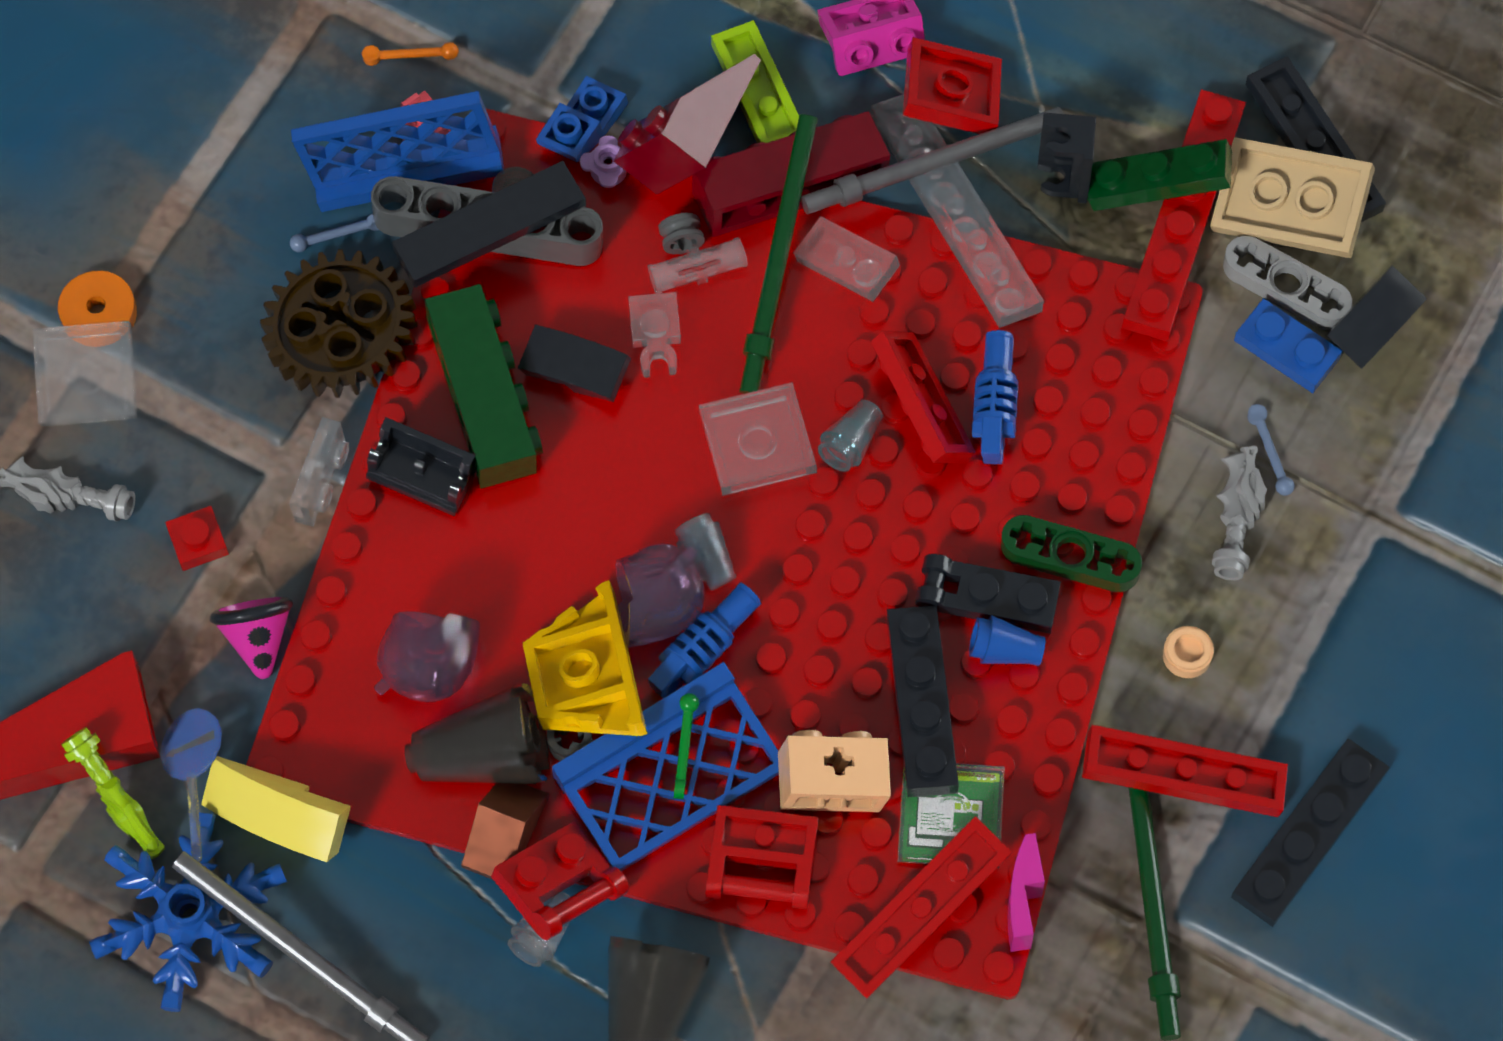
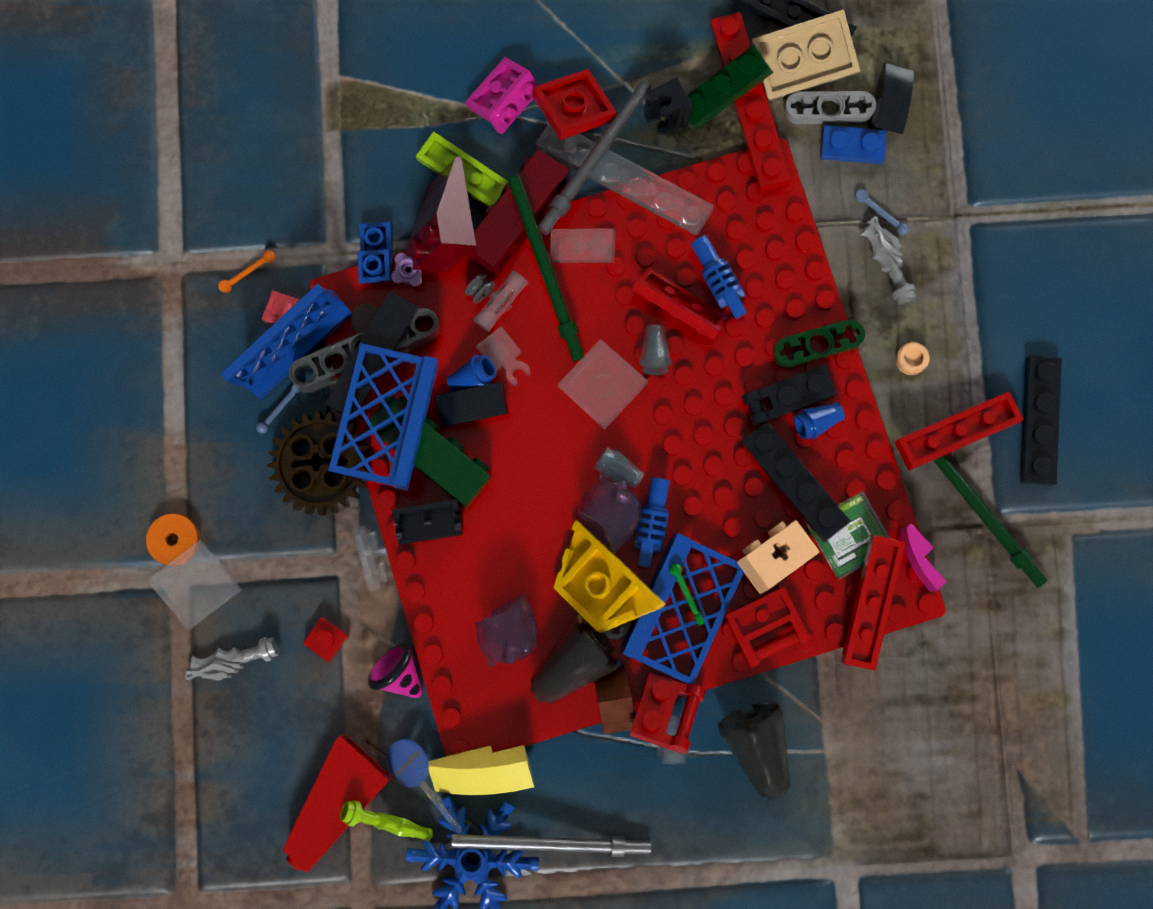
camera: 30 degrees left, 15 degrees up
(482, 329) = (412, 423): none -> blue fence
(605, 324) = (474, 373): none -> blue cone

